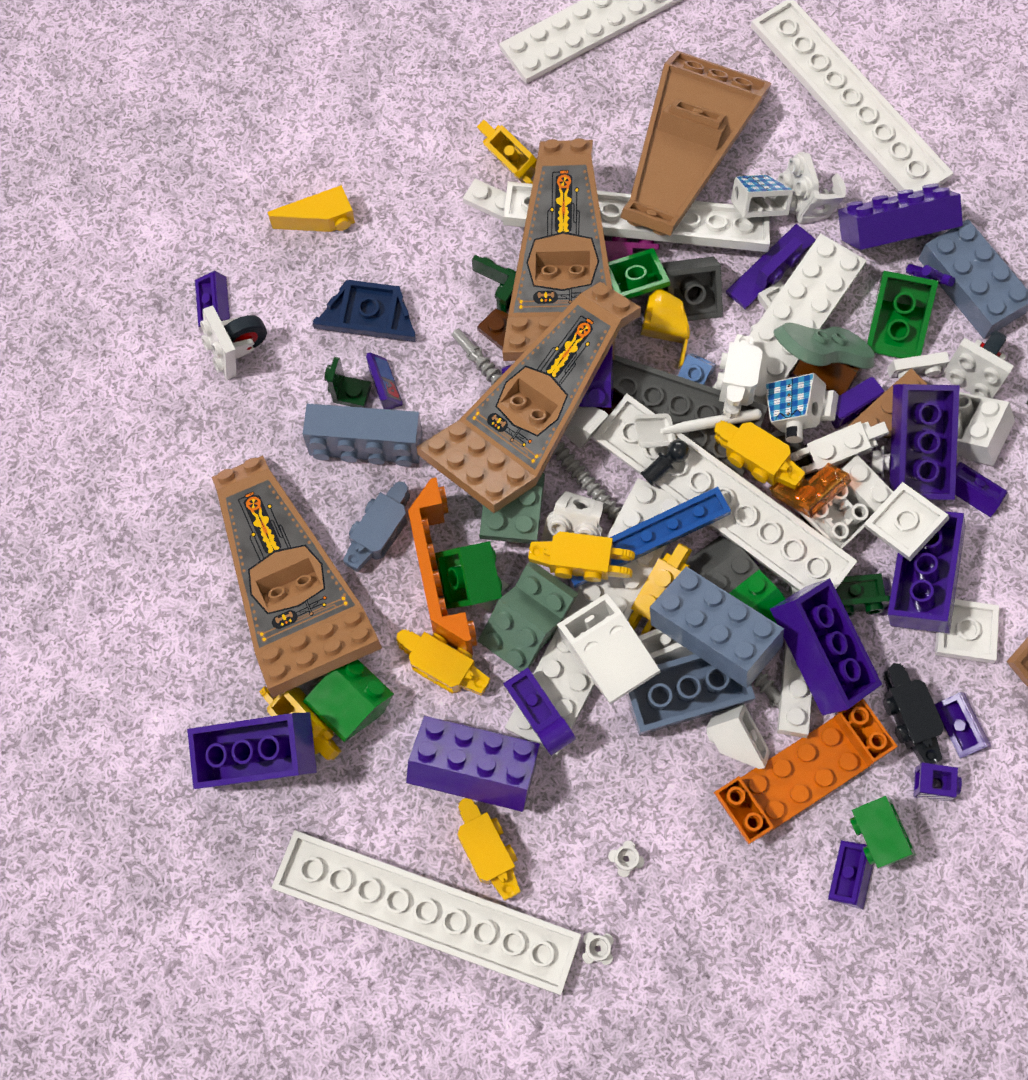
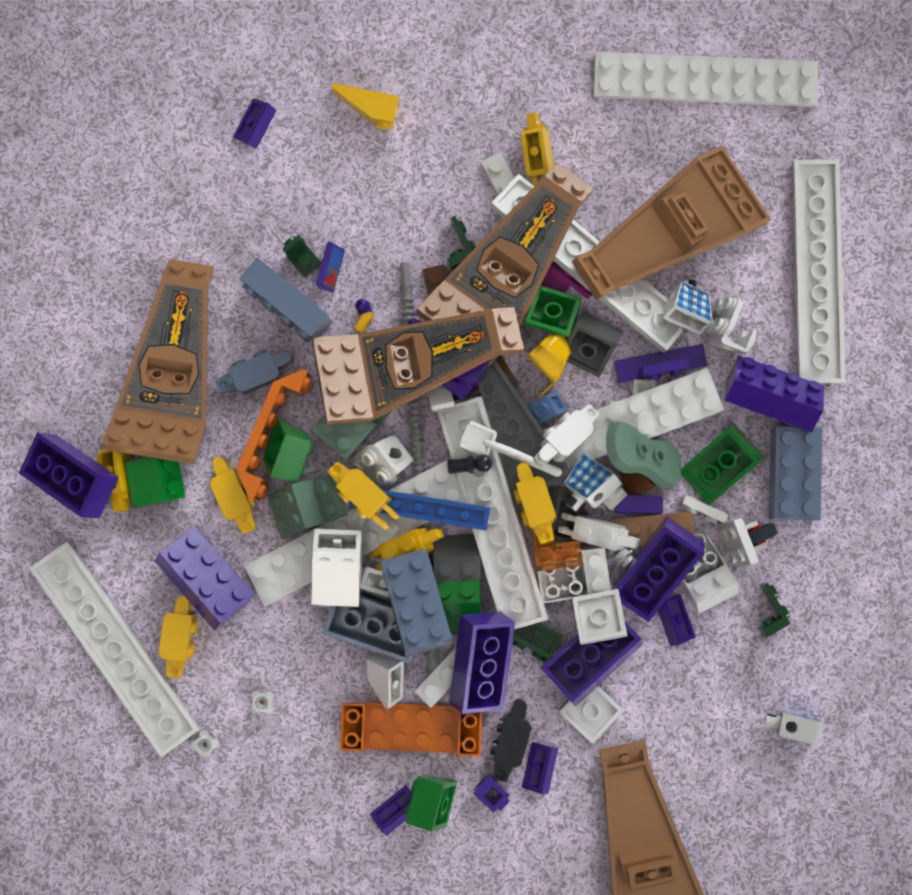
camera: 30 degrees right, 15 degrees up
(230, 339) = (244, 166): white plate -> none
(367, 311) = (355, 206): dark blue wing -> none
(449, 402) = (365, 313): none -> arm
(539, 711) = (269, 575): dark purple plate -> none
(930, 273) = (763, 450): dark purple hose -> none

